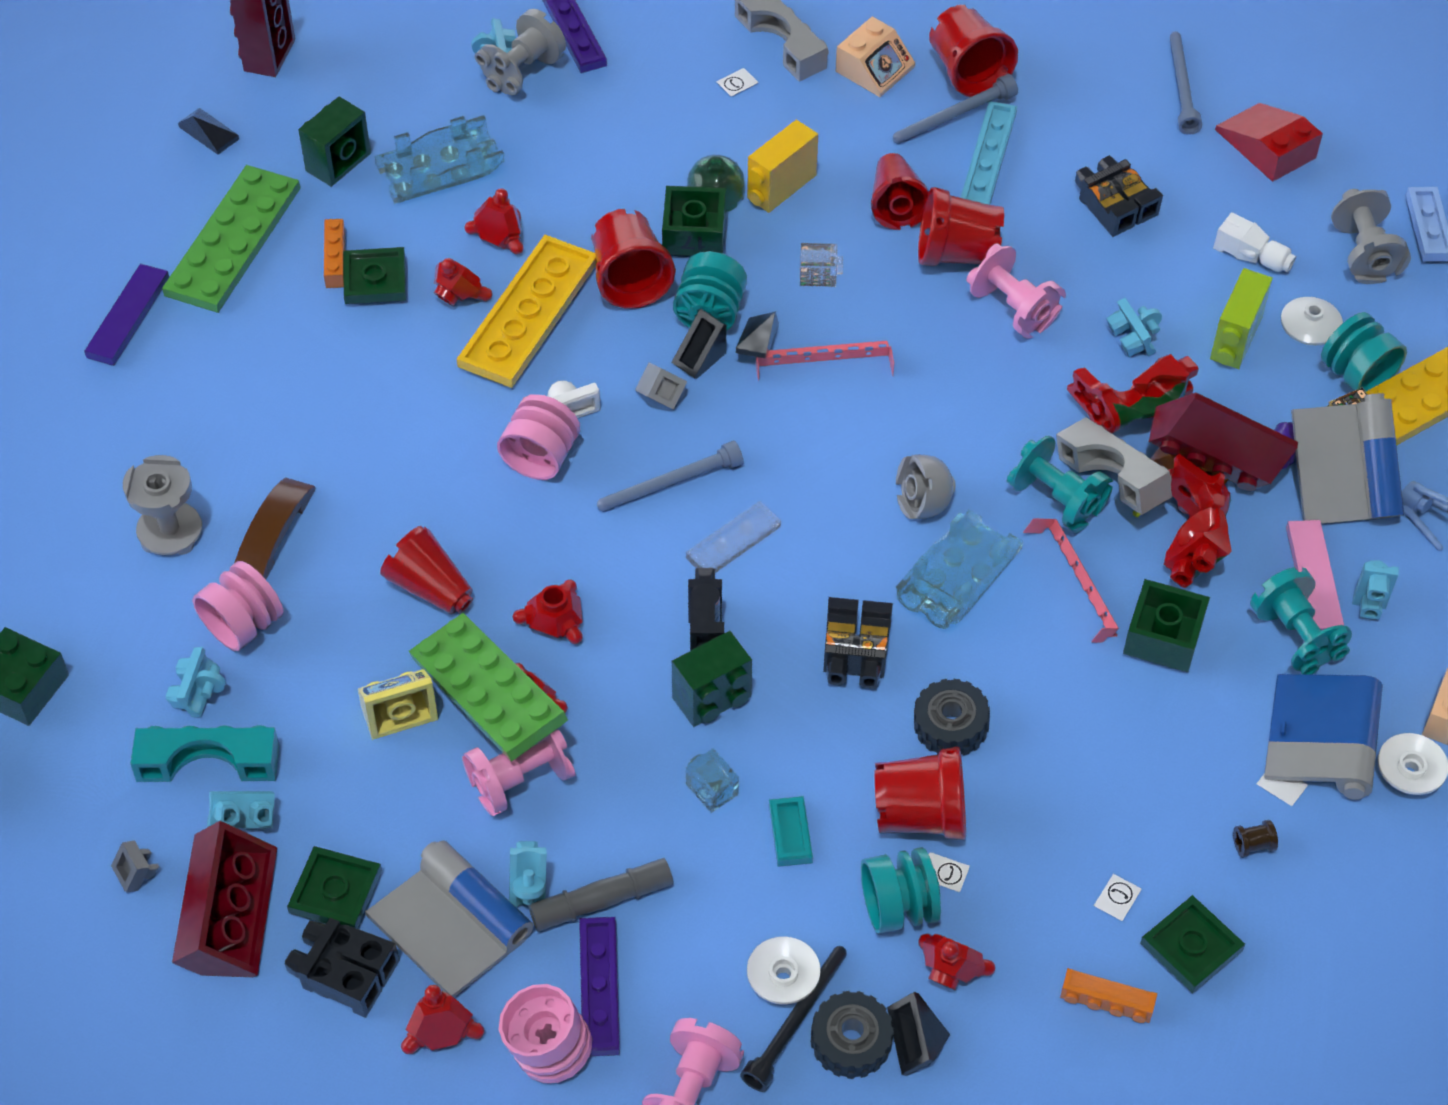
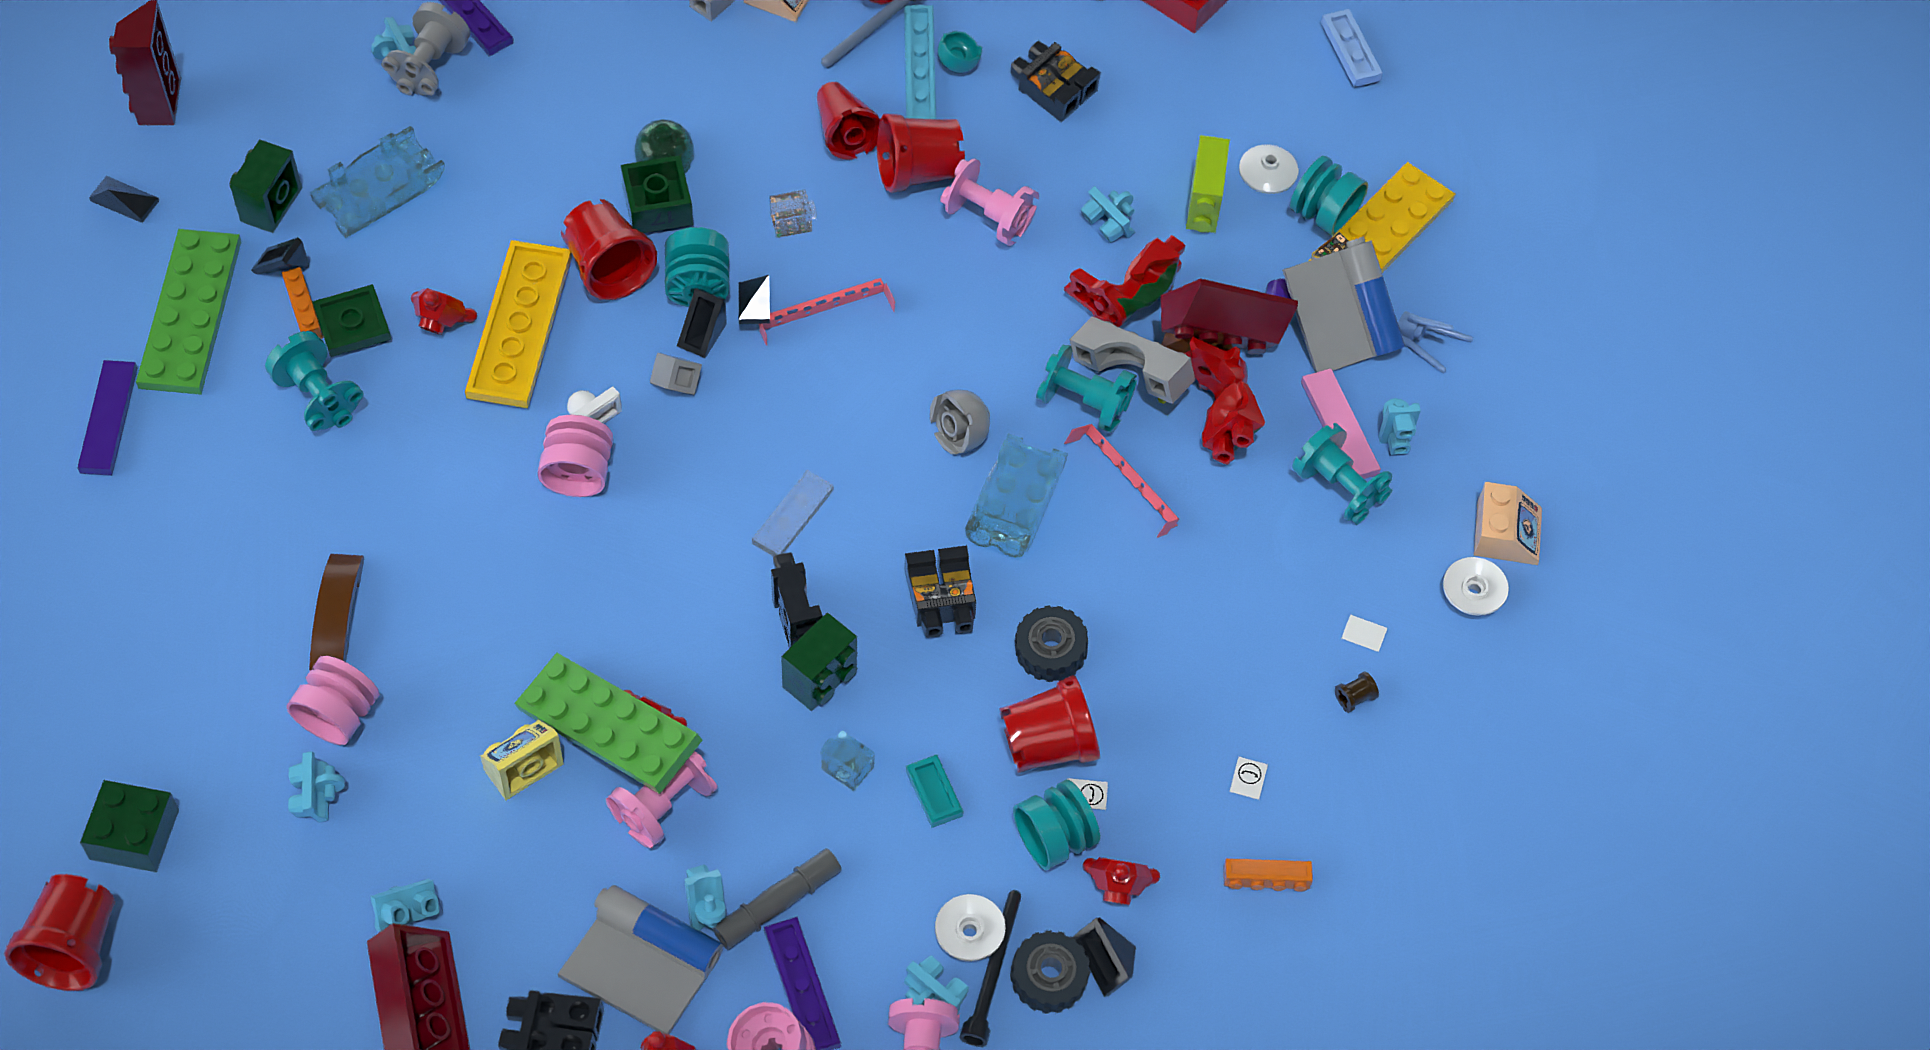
camera: 20 degrees left, 5 degrees up
(132, 866) = (313, 988): dark grey tile -> none
(159, 494) = (221, 610): light grey piece -> none
(163, 751) = (306, 864): teal arch -> none
(312, 303) = (301, 365): none -> teal piece
(331, 207) = (282, 257): none -> black slope
(334, 887) = (520, 958): dark green plate -> none
(427, 572) = (510, 620): red cone -> none
(498, 222) = (460, 238): red rock -> none
(554, 612) = (644, 630): red rock -> none
(720, 1011) = (924, 984): none -> medium azure hips
(727, 456) = (762, 431): sand blue piece -> none
(737, 82) = (650, 34): white sticker -> none
(782, 166) = (726, 118): yellow brick -> none
(1028, 151) = (959, 51): none -> teal hair
(1166, 625) = (1223, 506): dark green brick -> none
(1192, 943) = (1328, 805): dark green plate -> none
(1250, 243) = (1193, 103): white piece -> none
(1325, 731) = (1390, 573): blue door -> none
(1376, 252) = (1313, 88): light grey piece -> none

